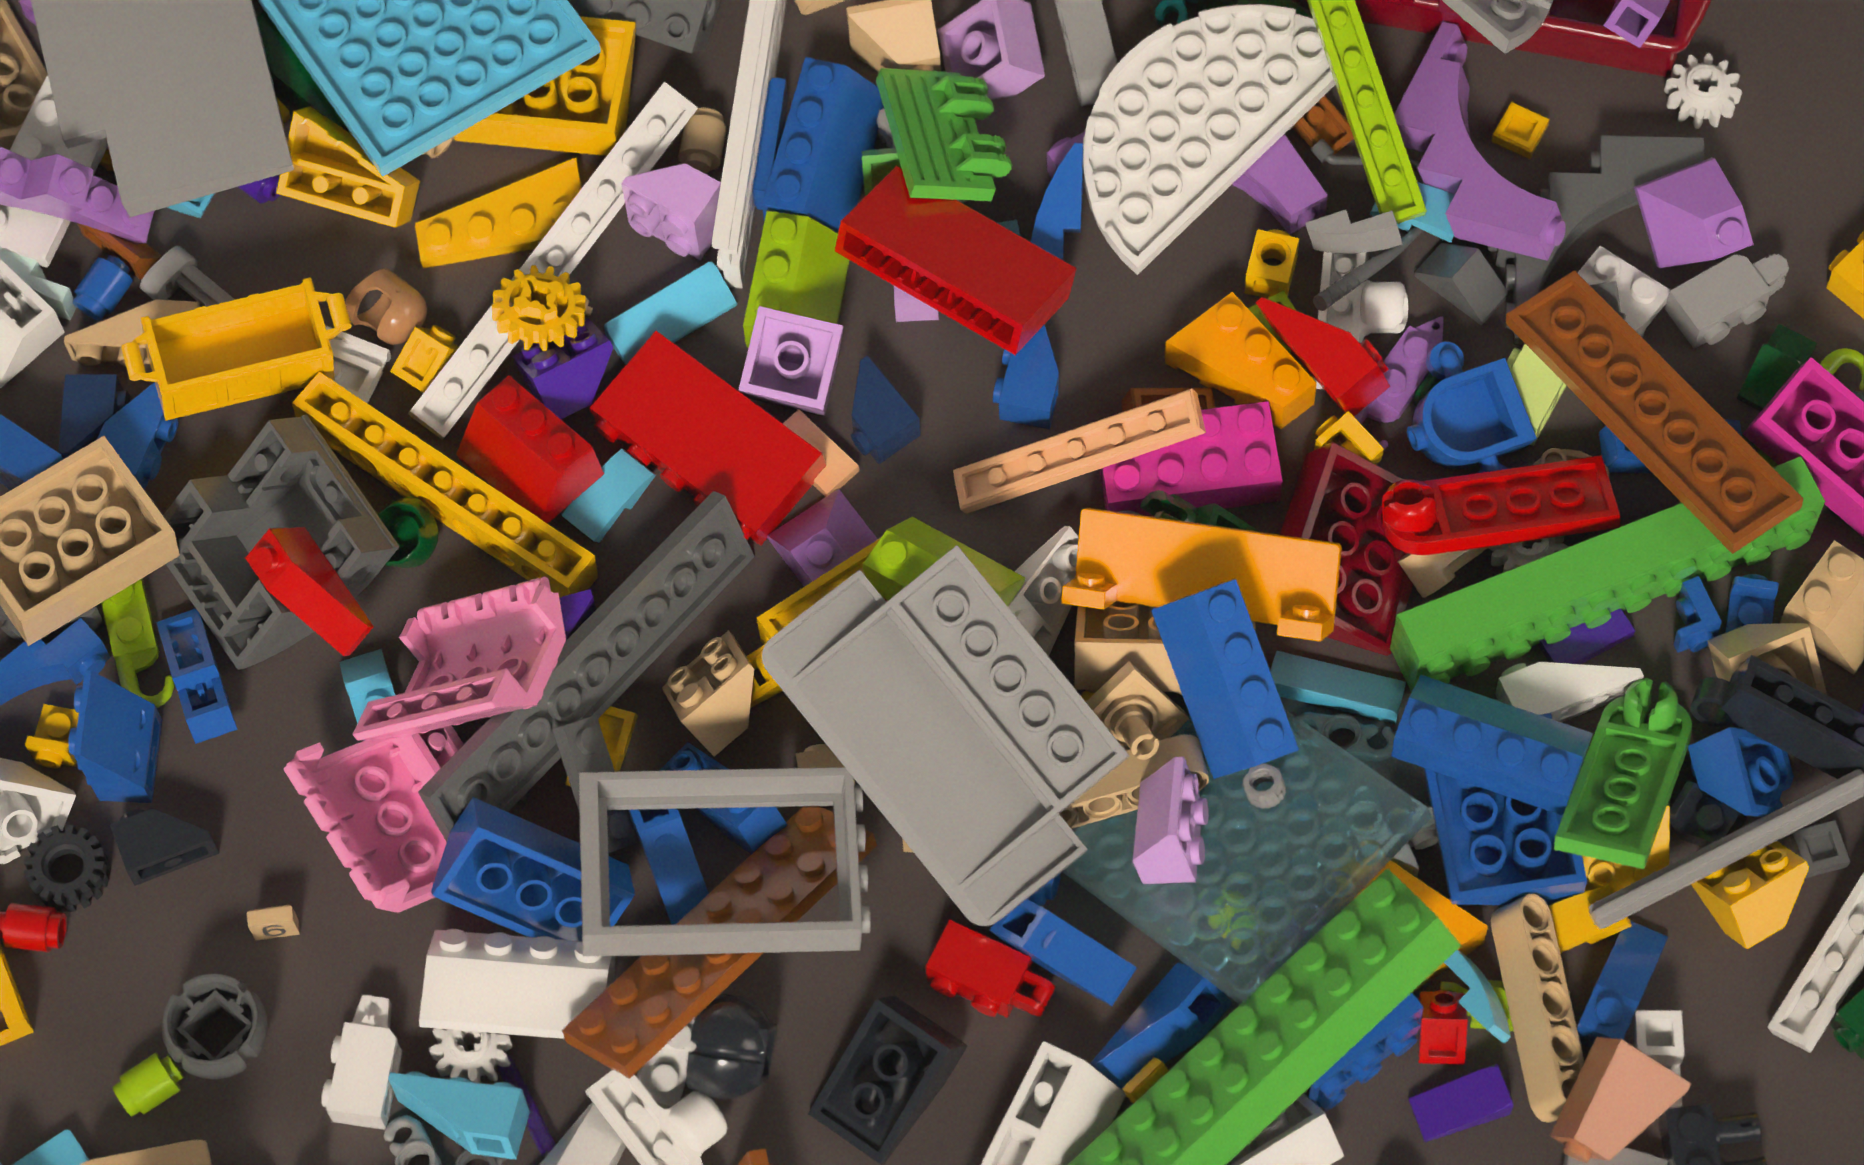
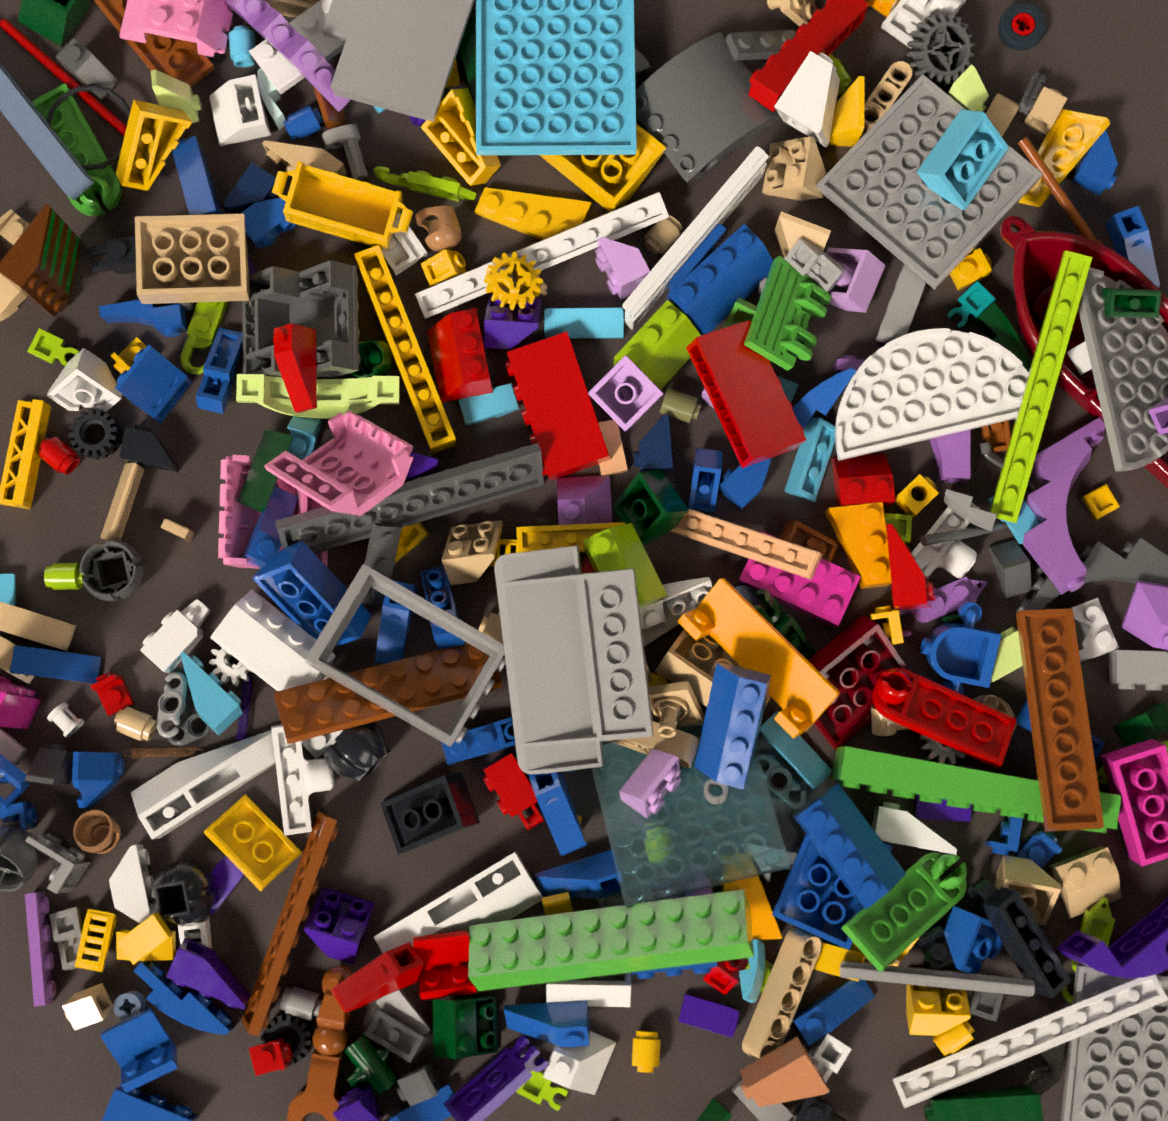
camera: 30 degrees right, 15 degrees up
(162, 932) = (122, 502): none -> tan slope
(334, 264) = (425, 183): none -> lime plate
(350, 762) = (259, 481): none -> dark green slope
(387, 605) = (333, 395): none -> yellowish green piece
(409, 832) = (265, 540): none -> blue slope
(878, 338) = (680, 406): none -> olive brick
(899, 933) = (481, 741): none -> blue slope
(922, 483) = (650, 505): none -> dark green slope
(936, 50) = (814, 262): none -> light grey slope
(974, 411) = (705, 480): none -> blue slope
(1101, 305) = (811, 460): none -> medium azure slope
(1187, 285) = (863, 480): none -> red slope
(1809, 918) = (954, 1038): none -> yellow brick

